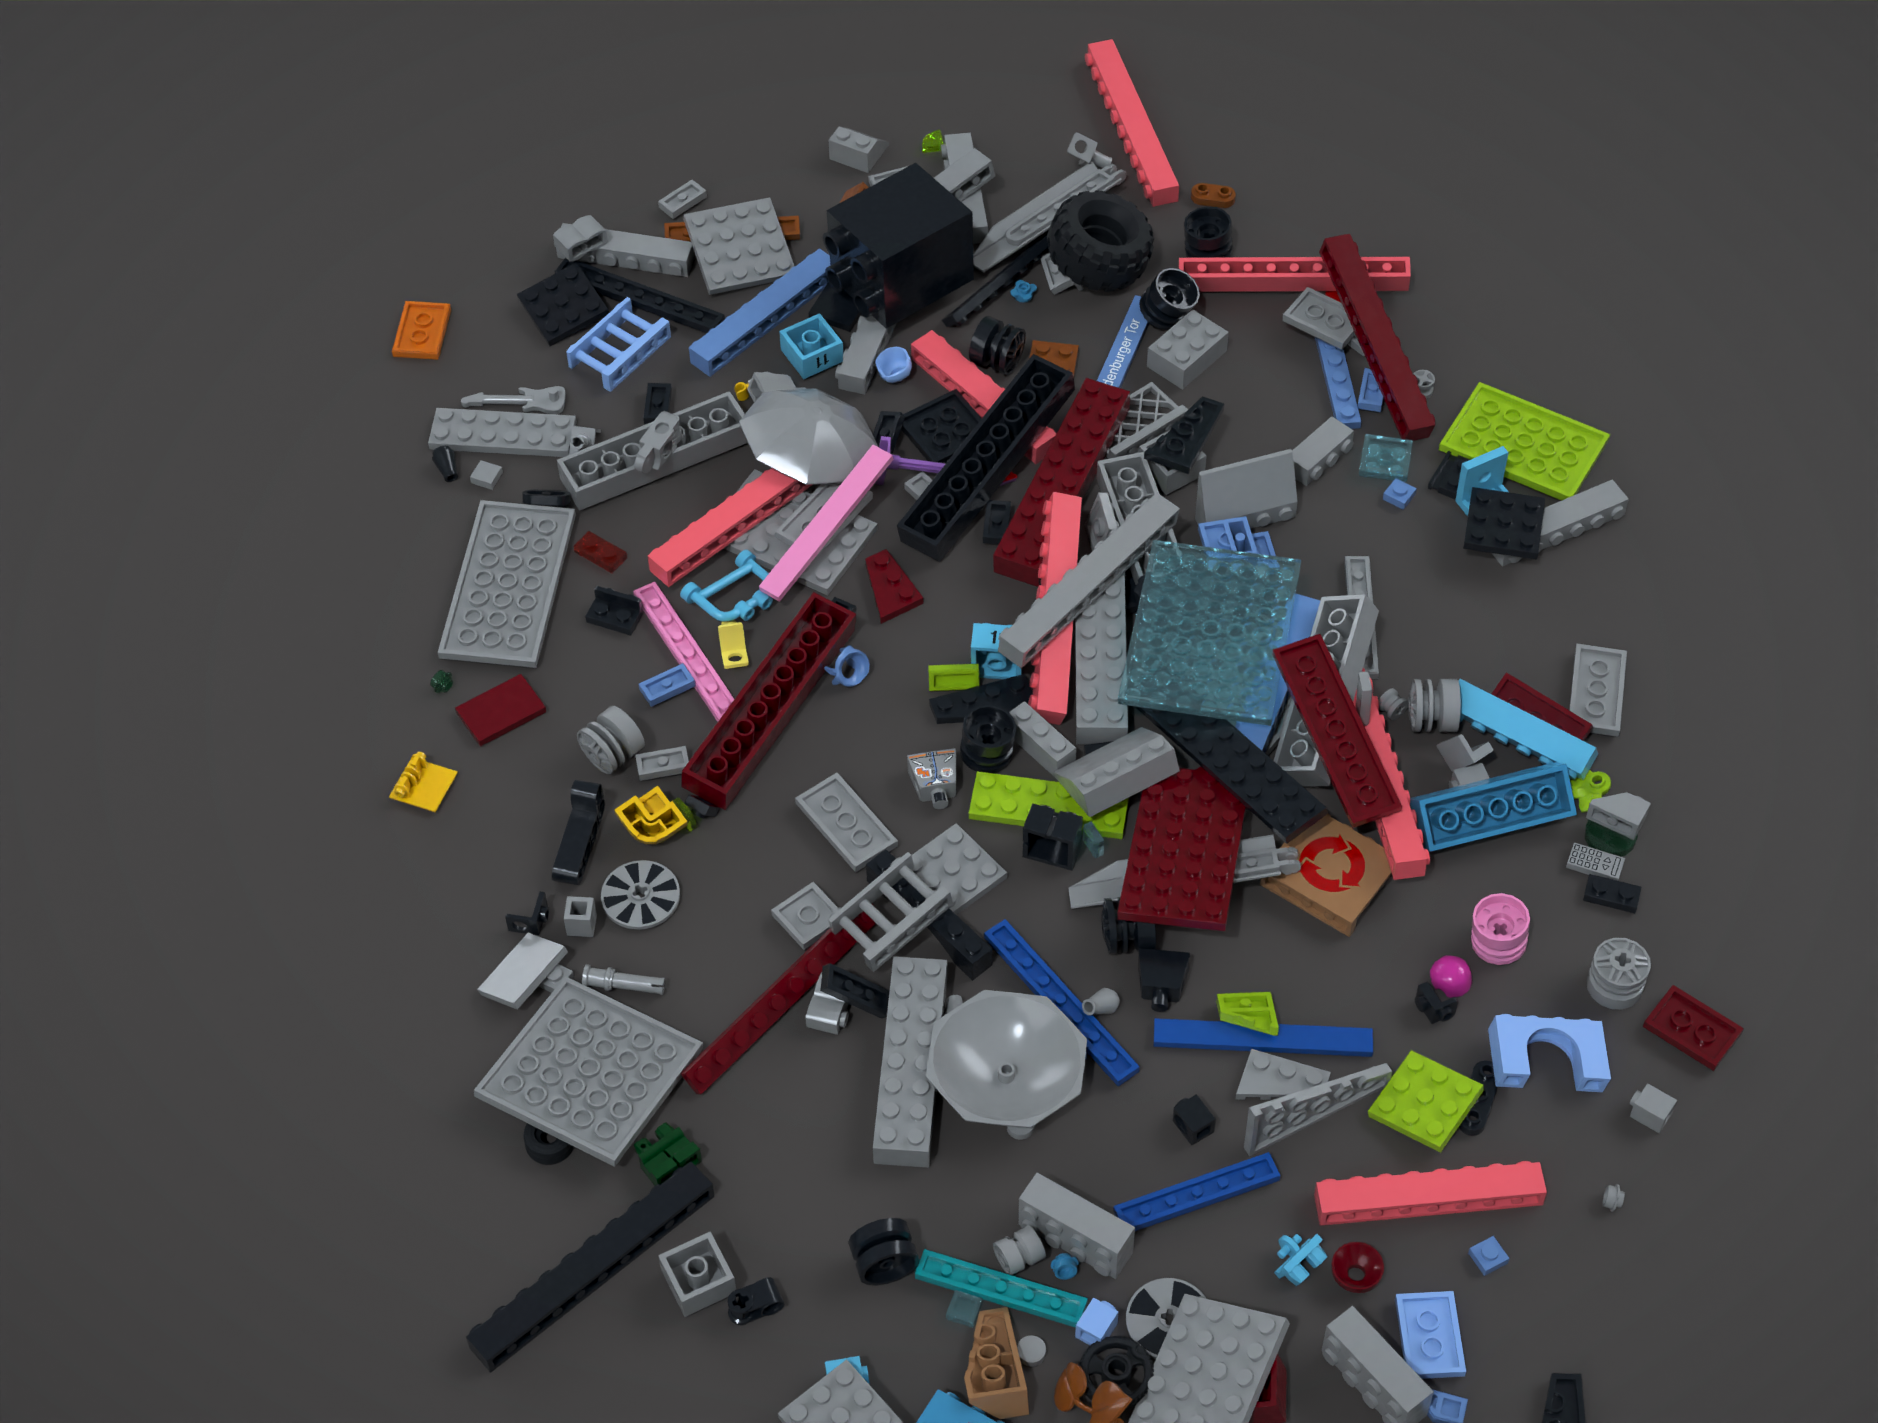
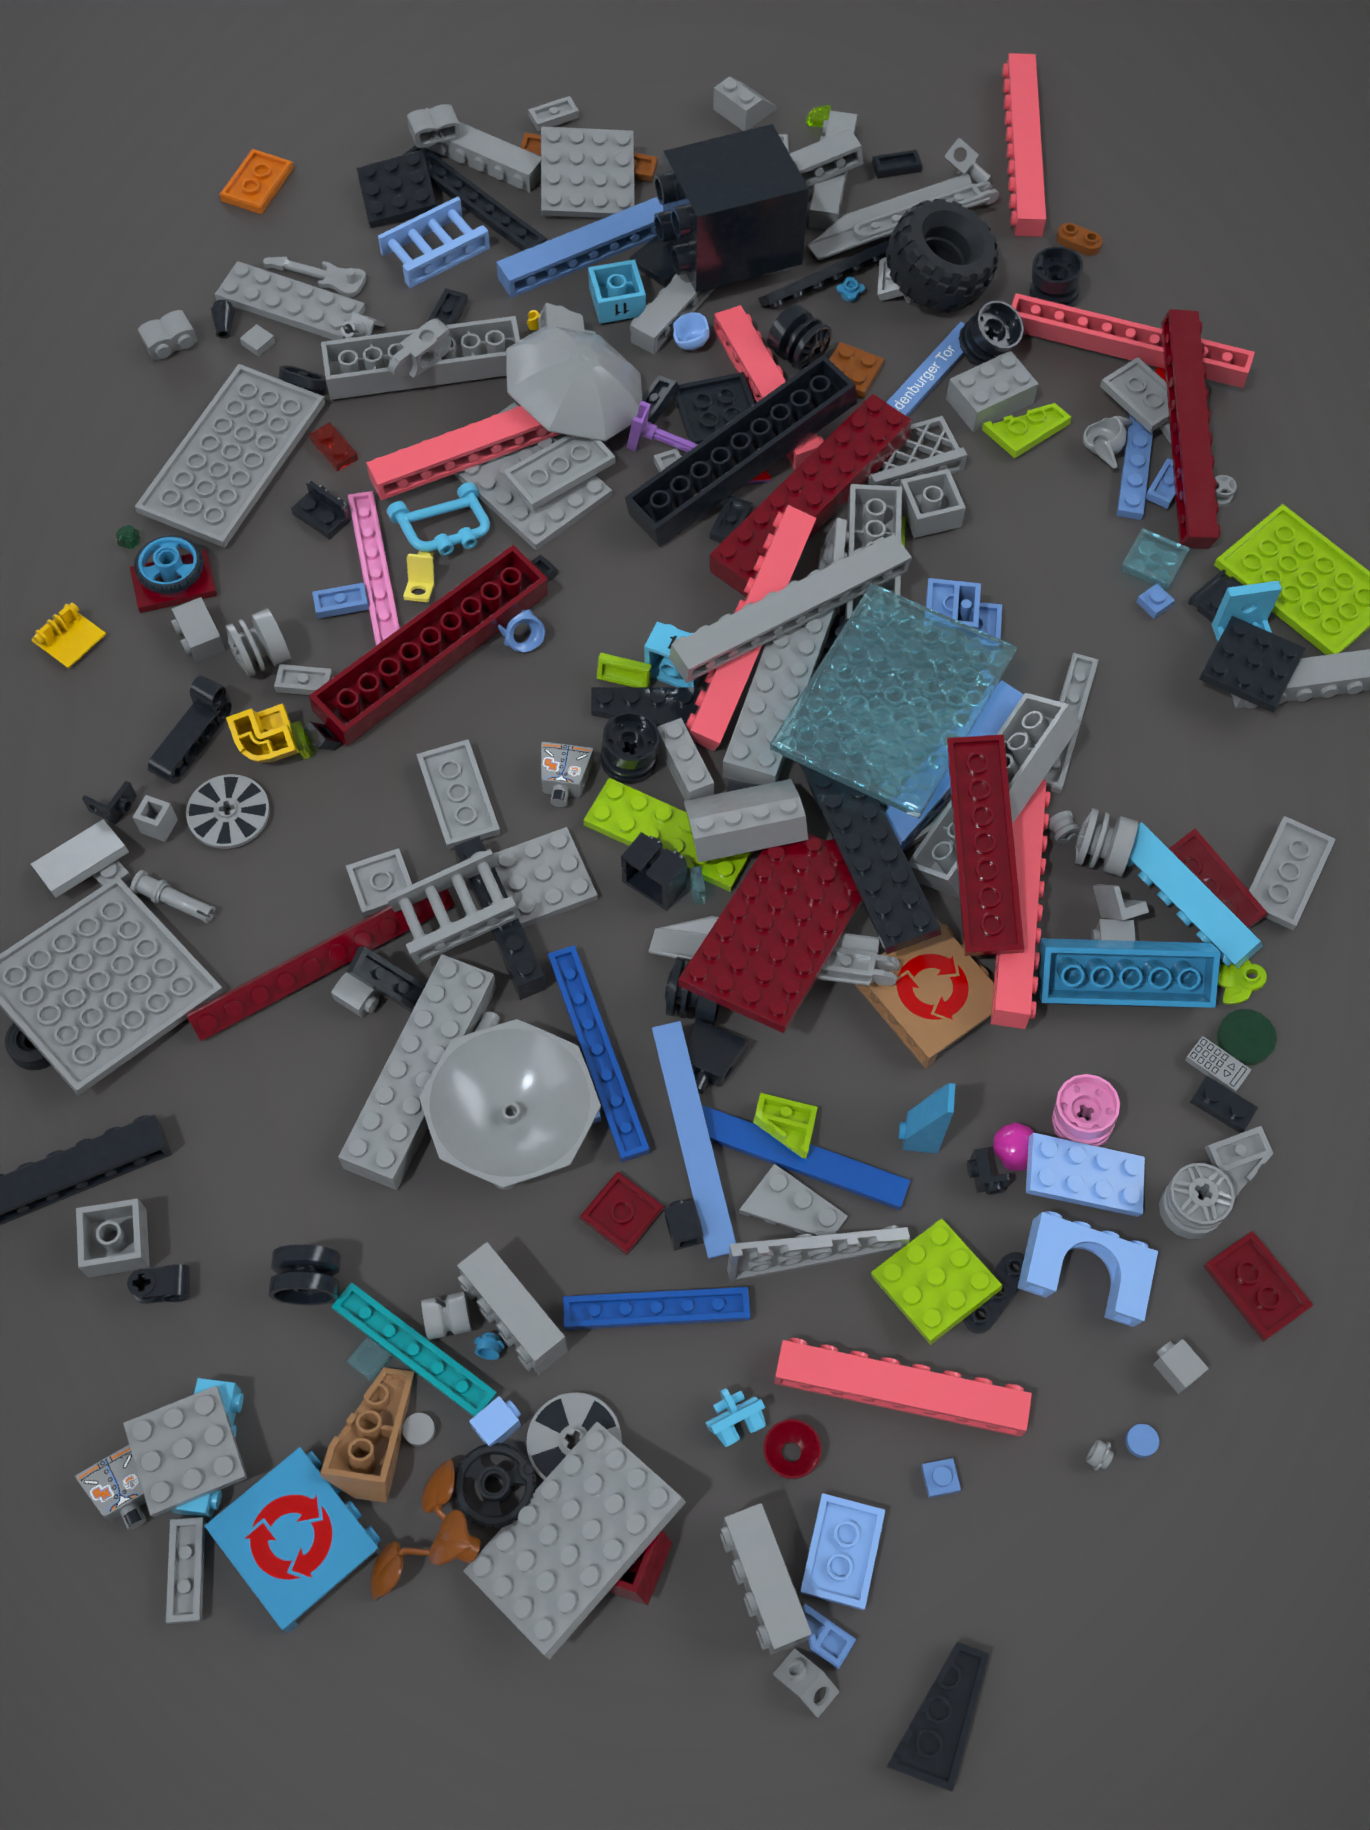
camera: 15 degrees right, 10 degrees up
(399, 491) = (167, 335): none -> light grey brick
(496, 694) = (168, 564): none -> dark azure wheel
(545, 745) = (198, 630): none -> light grey brick
(667, 1154) = (138, 1097): dark green hips -> none
(826, 523) = (554, 475): bright pink tile -> none
(891, 586) = (600, 559): dark red wing -> none
(1021, 168) = (897, 164): none -> black tile
(1102, 1002) = (638, 1066): light grey cone -> none
(1135, 1127) = (622, 1213): none -> dark red tile
(1175, 1044) = (694, 1139): none -> medium blue tile
(1187, 437) = (952, 483): black wing -> none
(1232, 375) = (1026, 431): none -> lime wing
(1251, 488) = (1001, 557): light grey slope -> none
(1305, 364) = (1106, 438): none -> light grey piece
(1321, 450) = (1087, 533): light grey brick -> none
(1364, 697) = (1028, 816): light grey tile -> none
(1373, 971) = (928, 1121): none -> dark azure wedge
(1518, 980) = (1085, 1174): none -> light blue plate
(1620, 813) = (1263, 1019): light grey slope -> none
(1642, 926) = (1240, 1156): none -> light grey wing
(1643, 1176) = (1142, 1440): none -> medium blue tile

